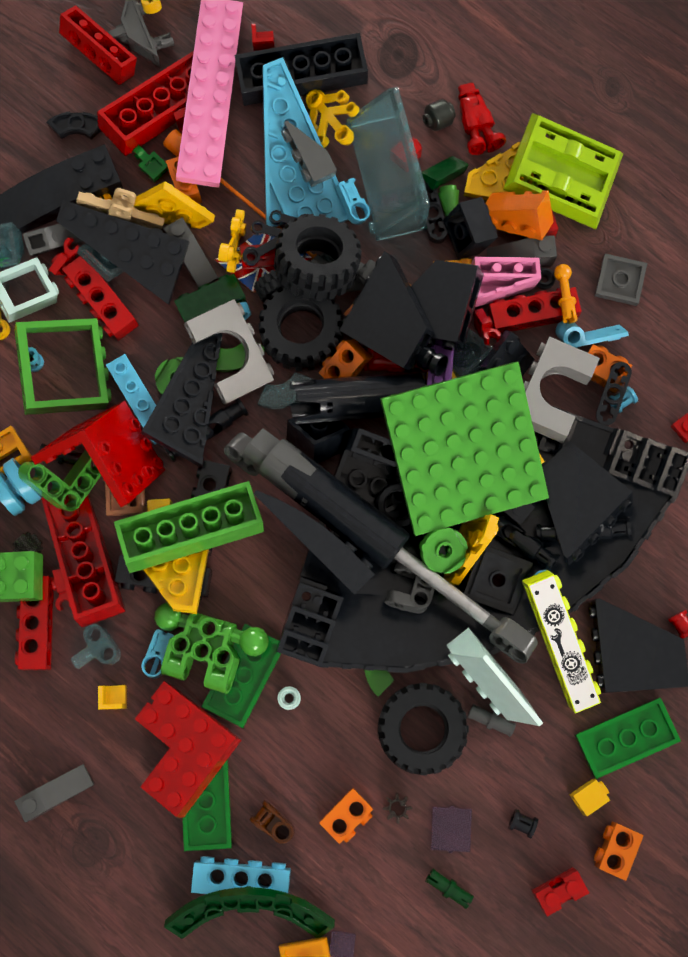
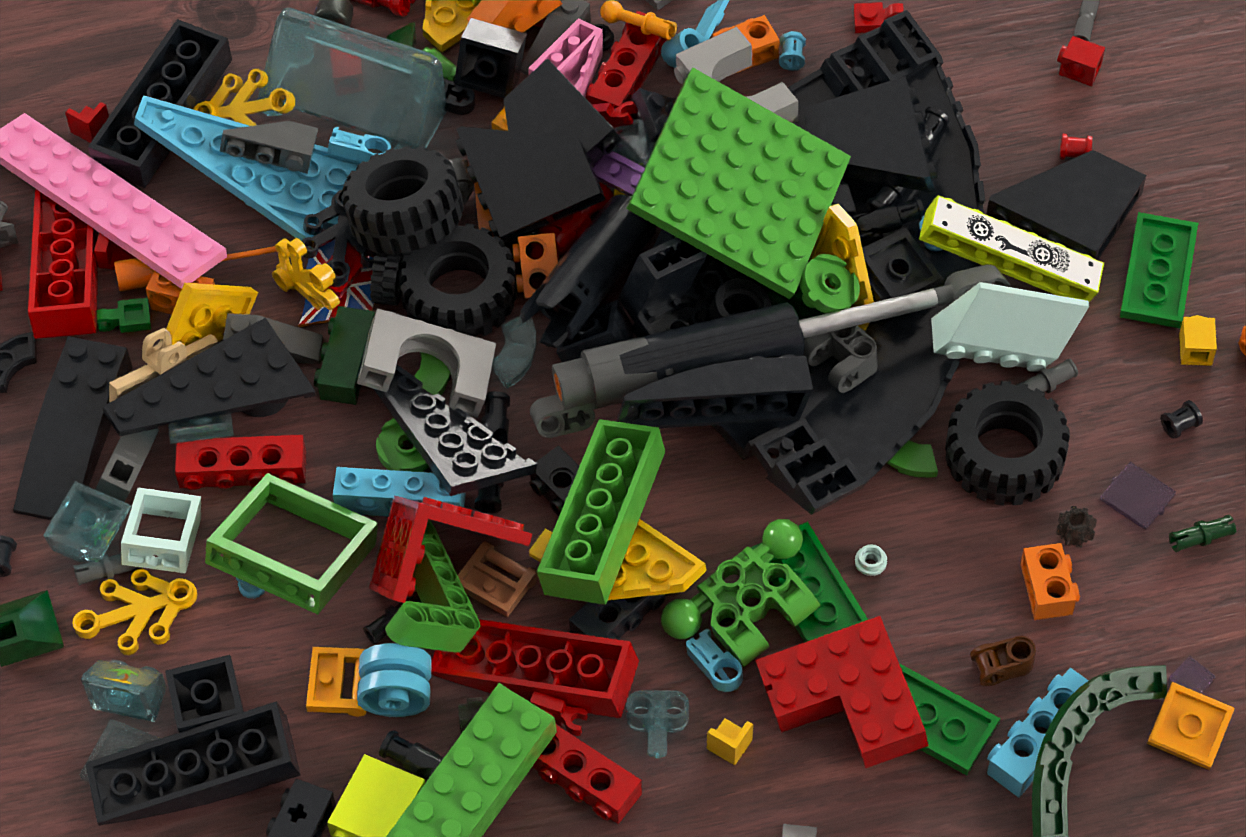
camera: 55 degrees left, 20 degrees down
(63, 259) = (162, 471): red plate -> none
(431, 360) = (612, 169): black wheel -> none
(613, 376) = (781, 34): black beam -> none

